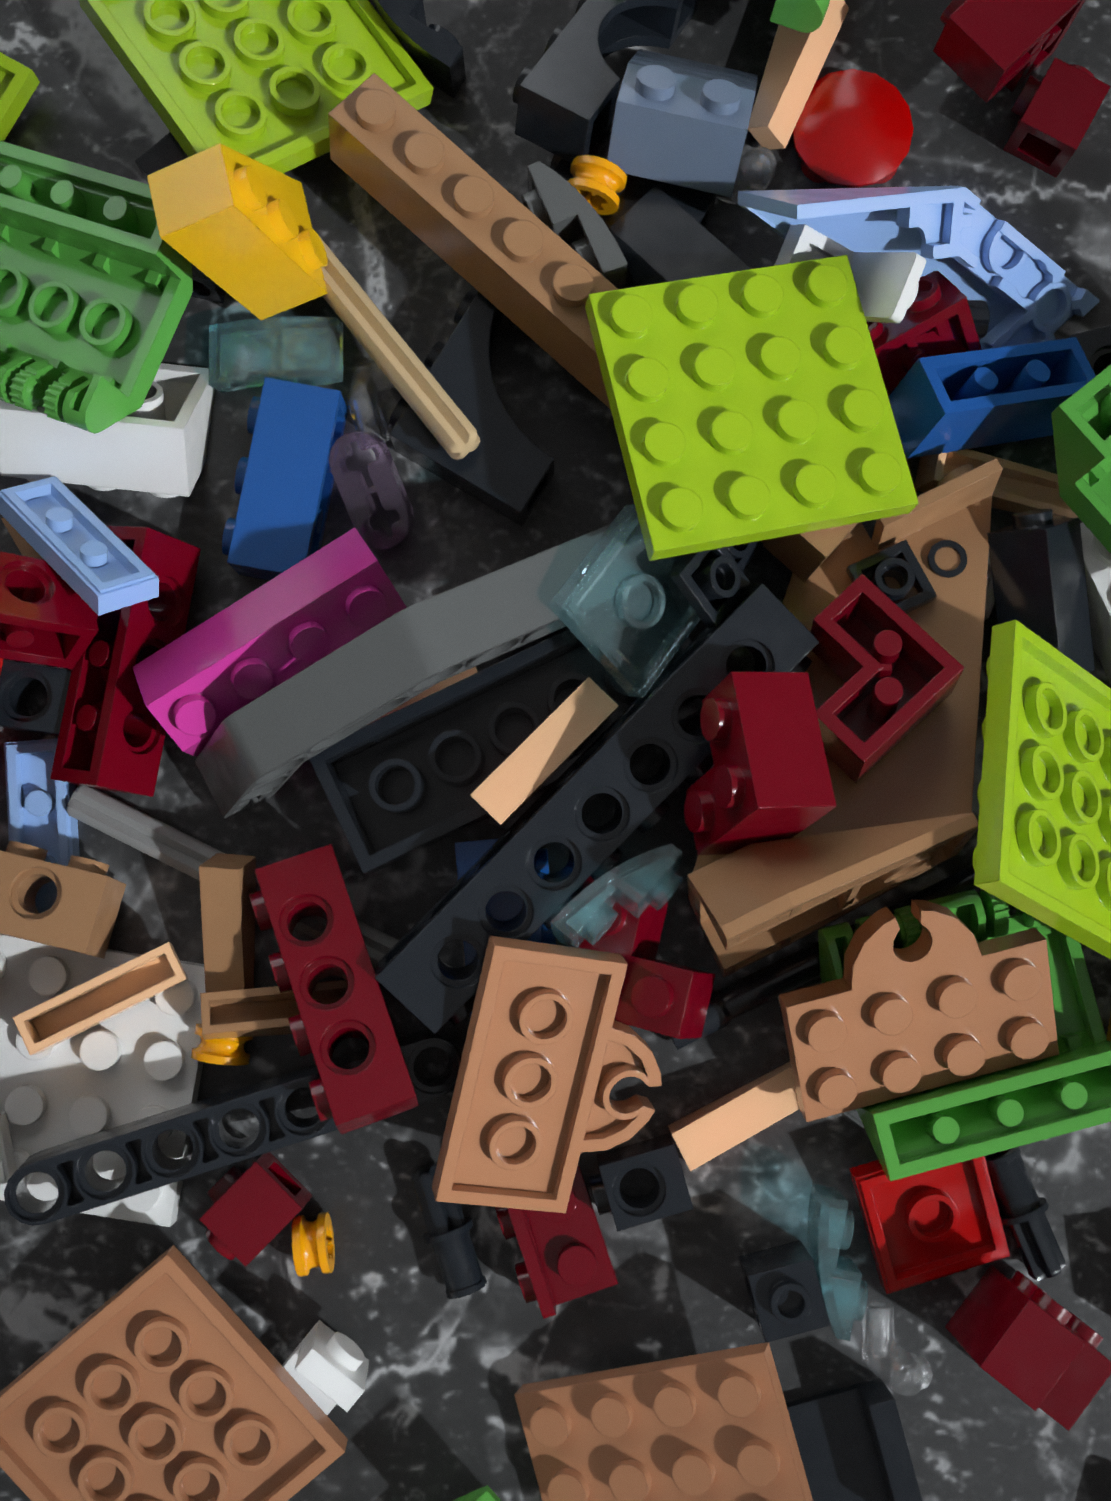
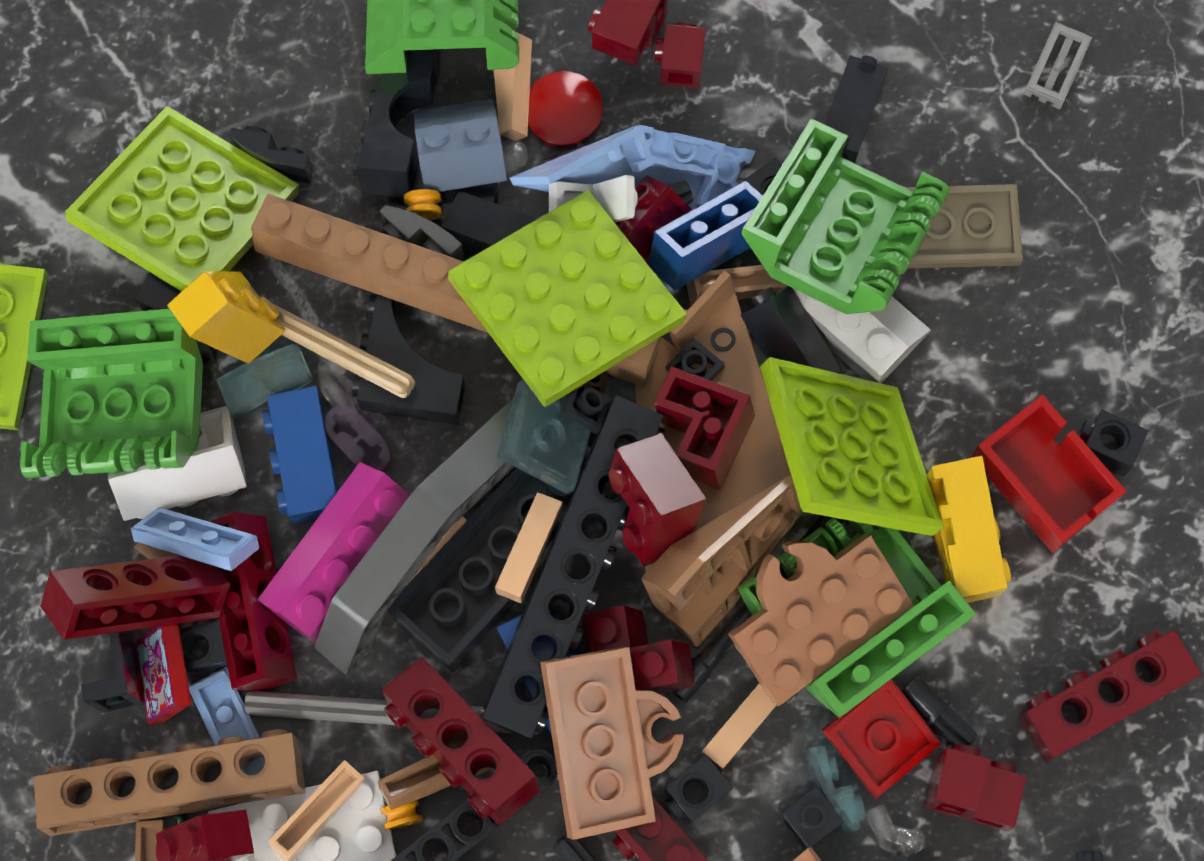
camera: 20 degrees left, 10 degrees down
(228, 921) = (375, 733): medium nougat piece -> none
(633, 884) = (612, 602): clear light blue slope -> none

